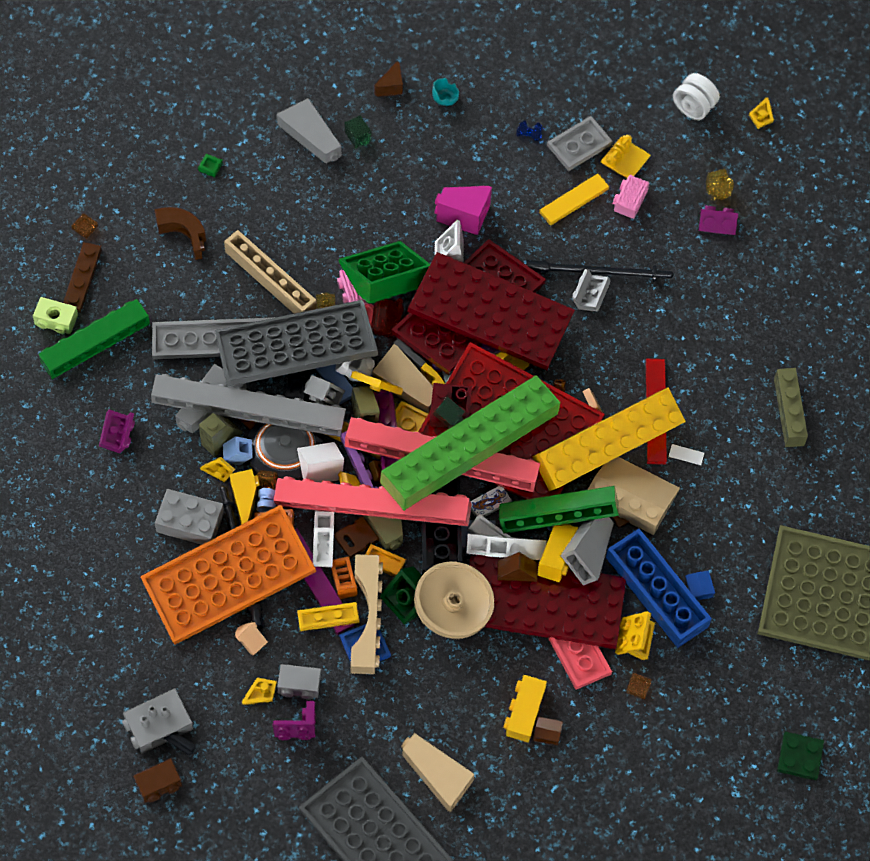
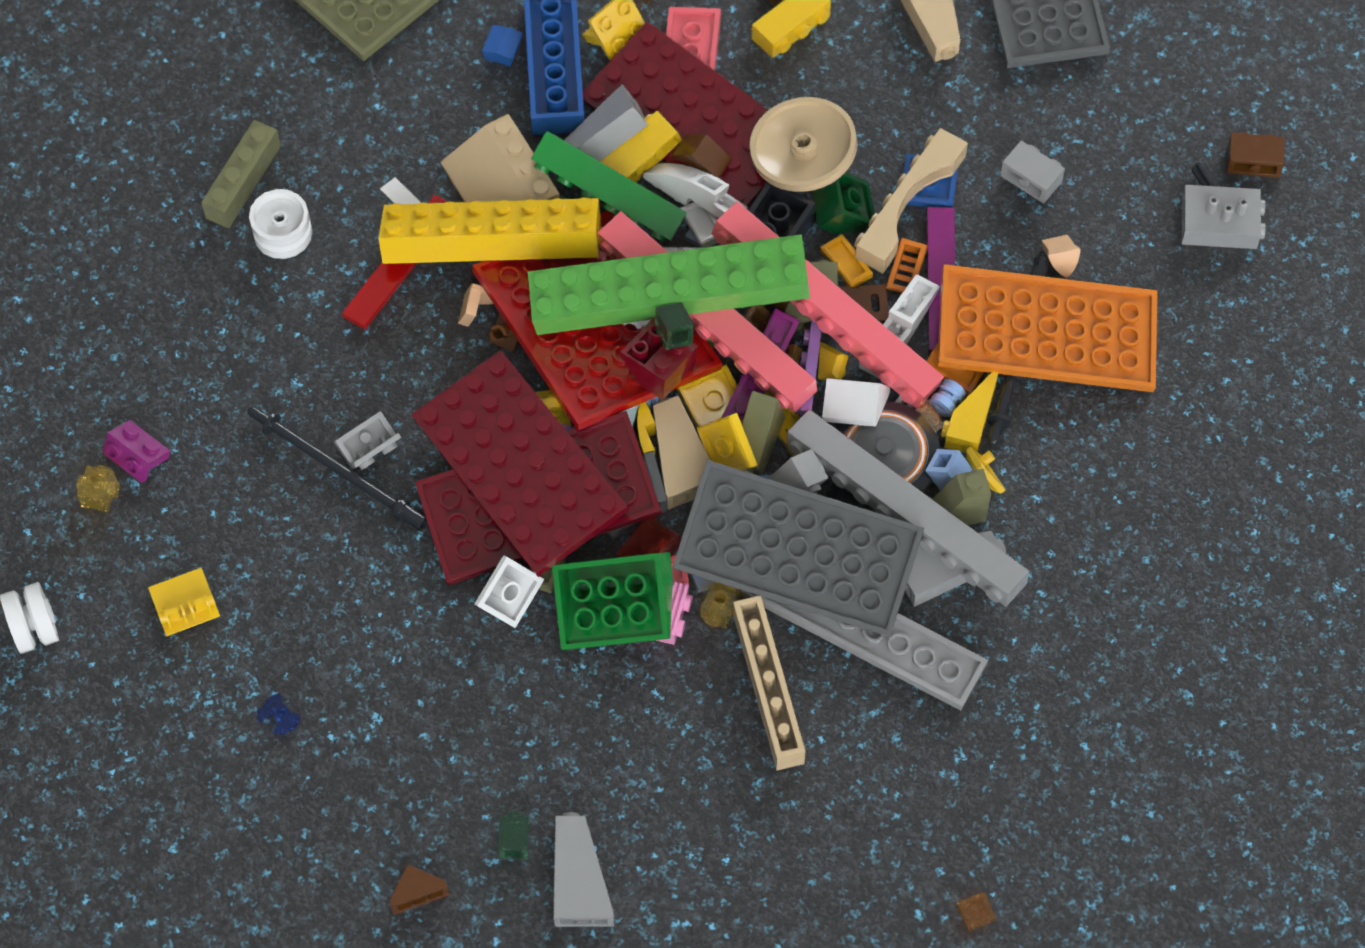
camera: 145 degrees left, 0 degrees up
(48, 308) = (1091, 804): yellowish green brick -> none
(82, 275) = (1020, 834): reddish brown plate -> none
(94, 338) = (1052, 728): green brick -> none
(116, 431) = (1087, 584): magenta bracket -> none
(179, 220) = (844, 840): reddish brown arch -> none
(189, 517) = (1056, 424): light grey brick -> none
(210, 165) = (748, 908): green tile -> none
(260, 692) = (1081, 192): yellow piece -> none
(302, 729) = (1066, 117): magenta bracket -> none
(328, 616) = (954, 226): yellow tile -> none
(444, 92) = (354, 826): teal hair -> none
(464, 204) = (449, 632): dark pink slope -> none
(574, 199) = (293, 582): yellow tile -> none
(579, 143) = (228, 653): light grey plate -> none
(631, 196) = (220, 539): bright pink brick -> none
(741, 386) = (280, 223): none -> white wheel

